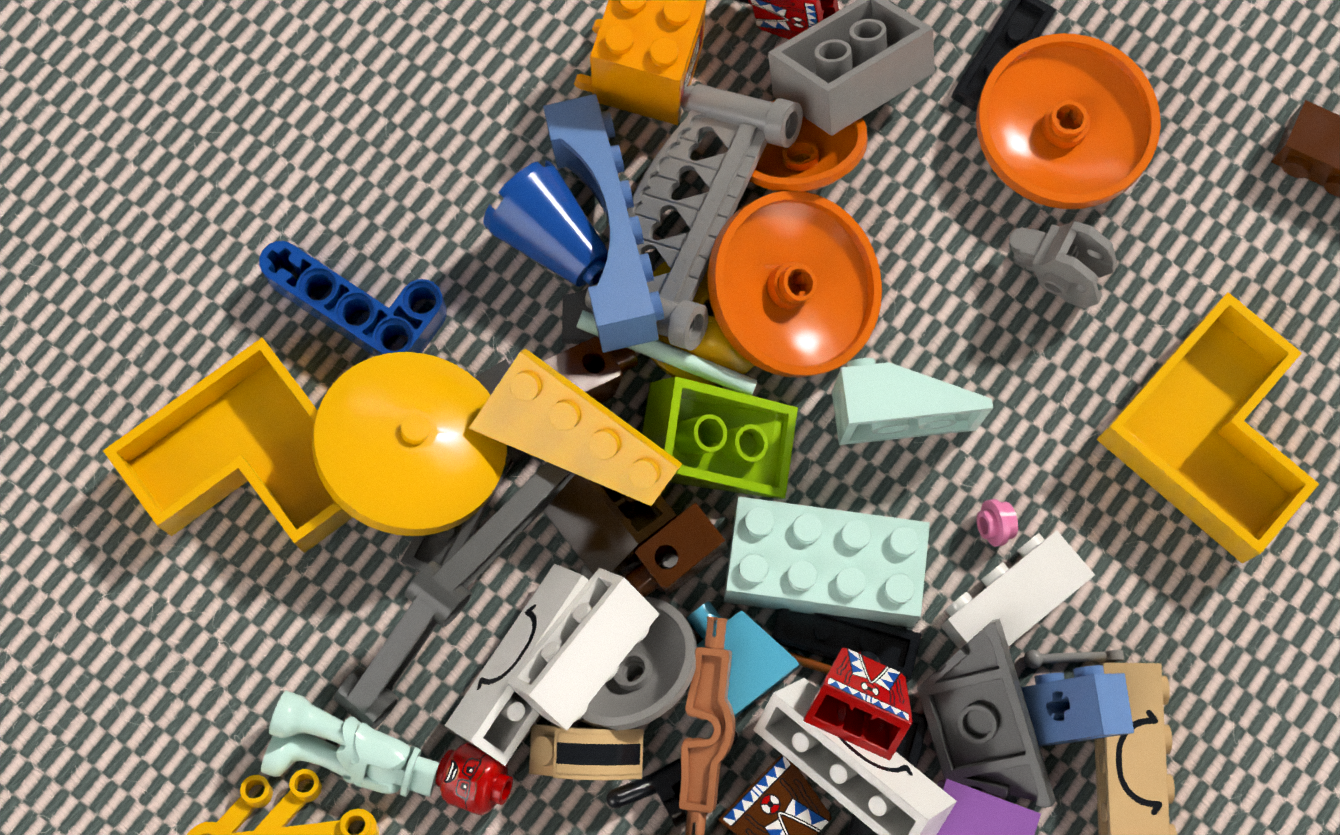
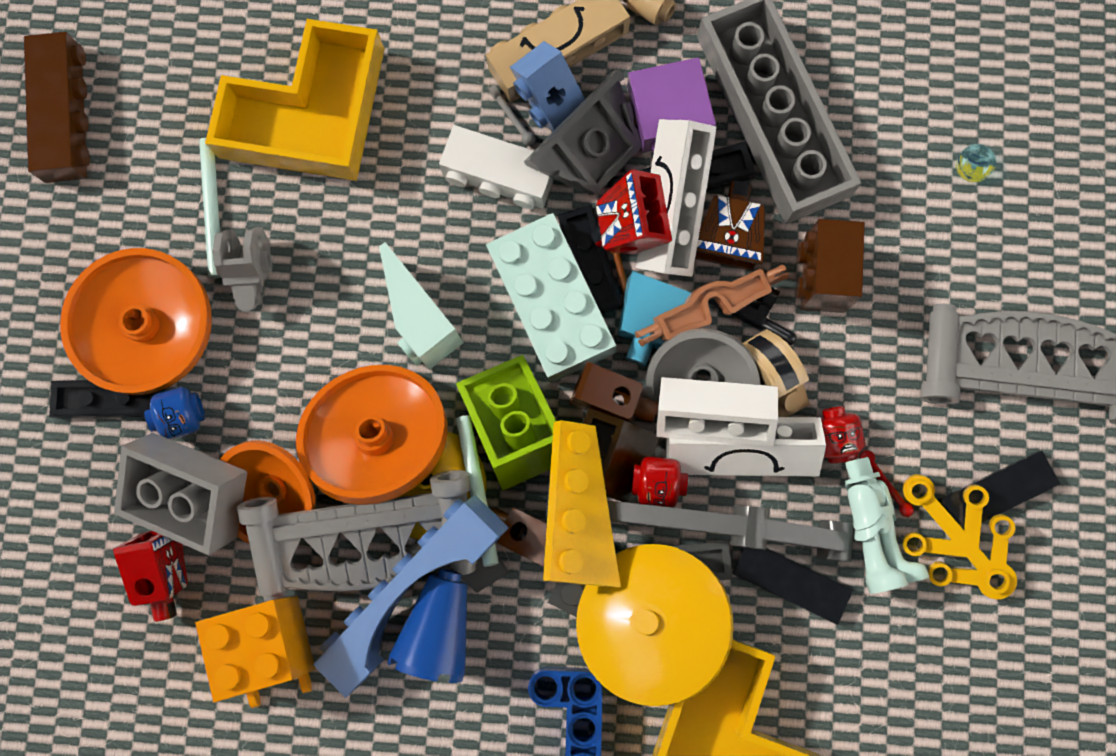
camera: 110 degrees left, 5 degrees up
(347, 802) = (905, 508): none -> red hinge
(349, 628) = (793, 583): none -> black tile
(550, 542) = (659, 481): none -> red head
(943, 106) = (175, 413): none -> blue head
(997, 522) = (454, 208): bright pink plate -> none
(1169, 273) = (210, 203): none -> light aqua bar

